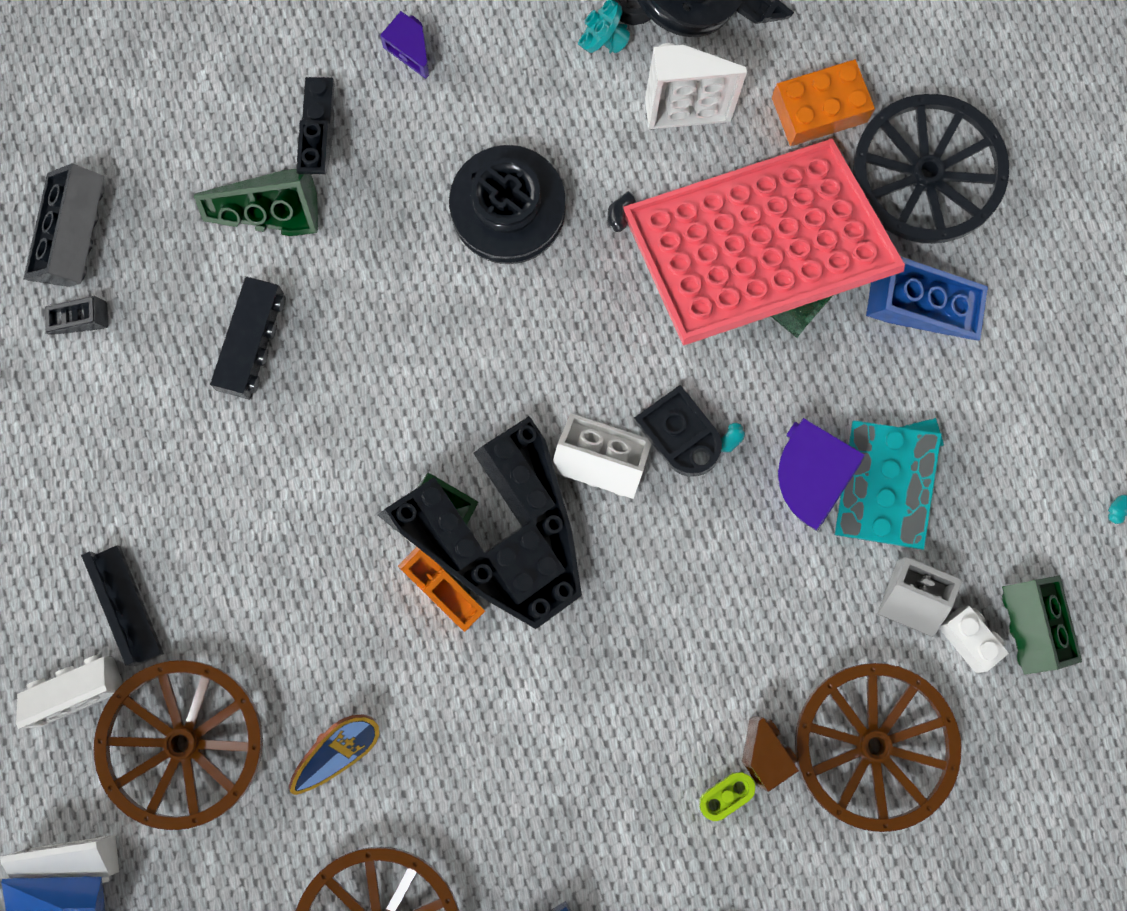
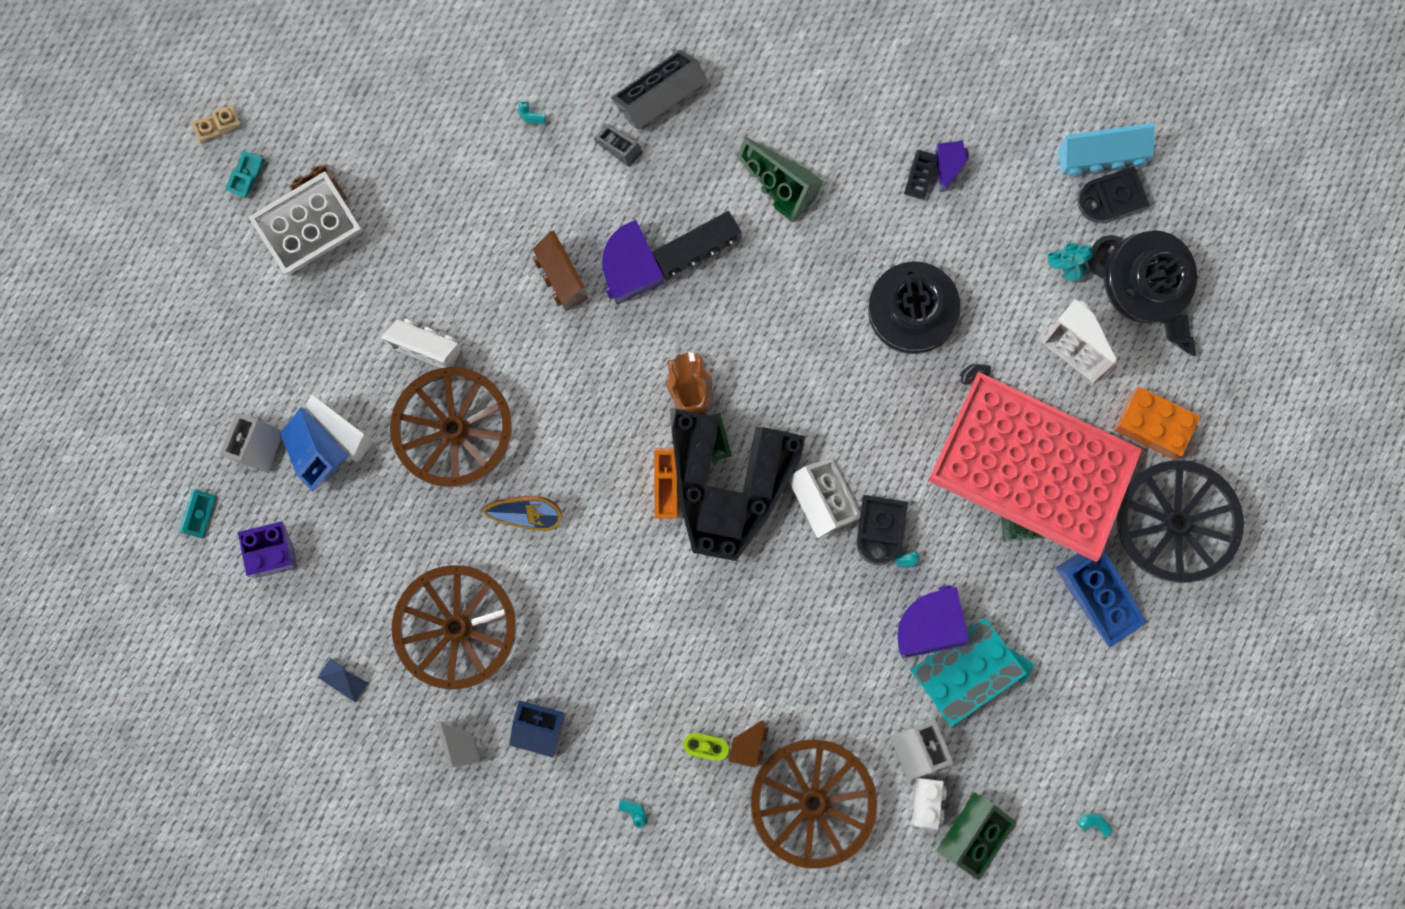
camera: 55 degrees right, 0 degrees up
(123, 606) = (492, 326): black fence -> none
(137, 490) = (559, 272): none -> reddish brown slope
(199, 417) = (629, 264): none -> dark purple brick
(316, 126) = (850, 163): black slope -> none
(371, 473) = (689, 383): none -> dark orange hair
(384, 63) = (925, 157): none -> black slope

